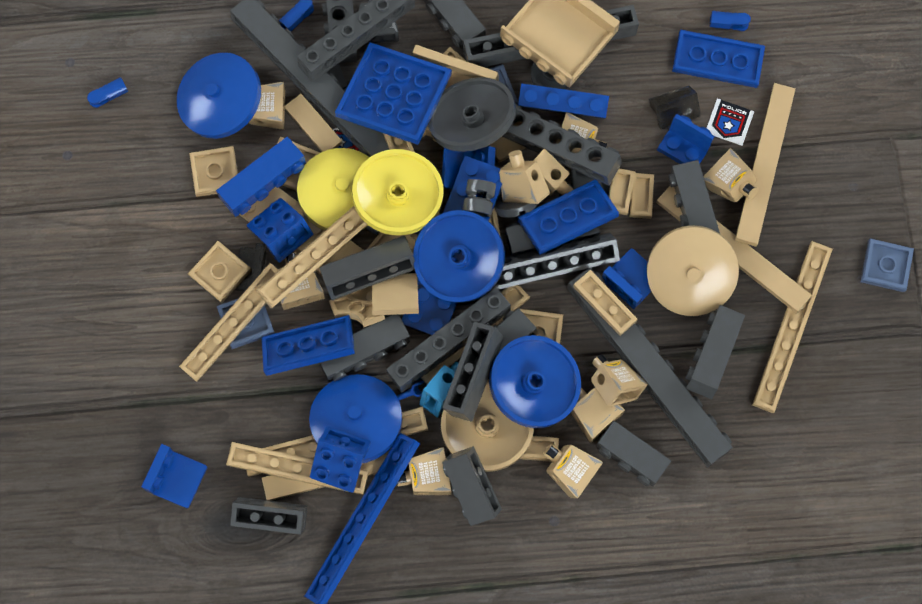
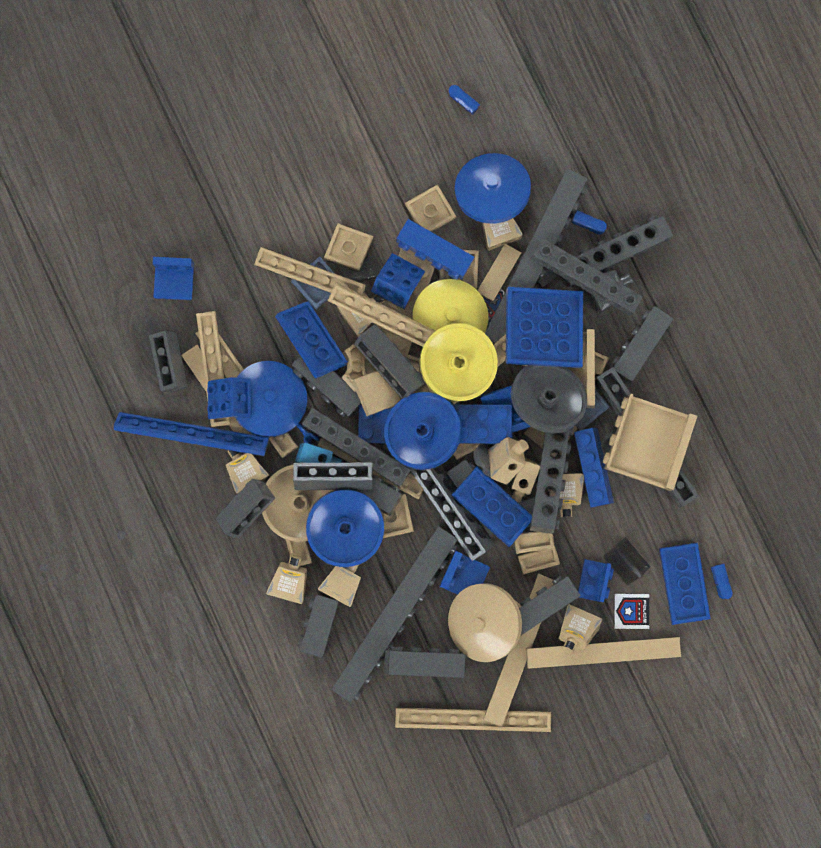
camera: 65 degrees right, 10 degrees up
(478, 205) = (469, 429): dark grey wheel -> none
(605, 302) = (430, 561): tan plate -> none
(616, 381) = (371, 592): tan torso -> none
(887, 265) = (554, 781): sand blue tile -> none

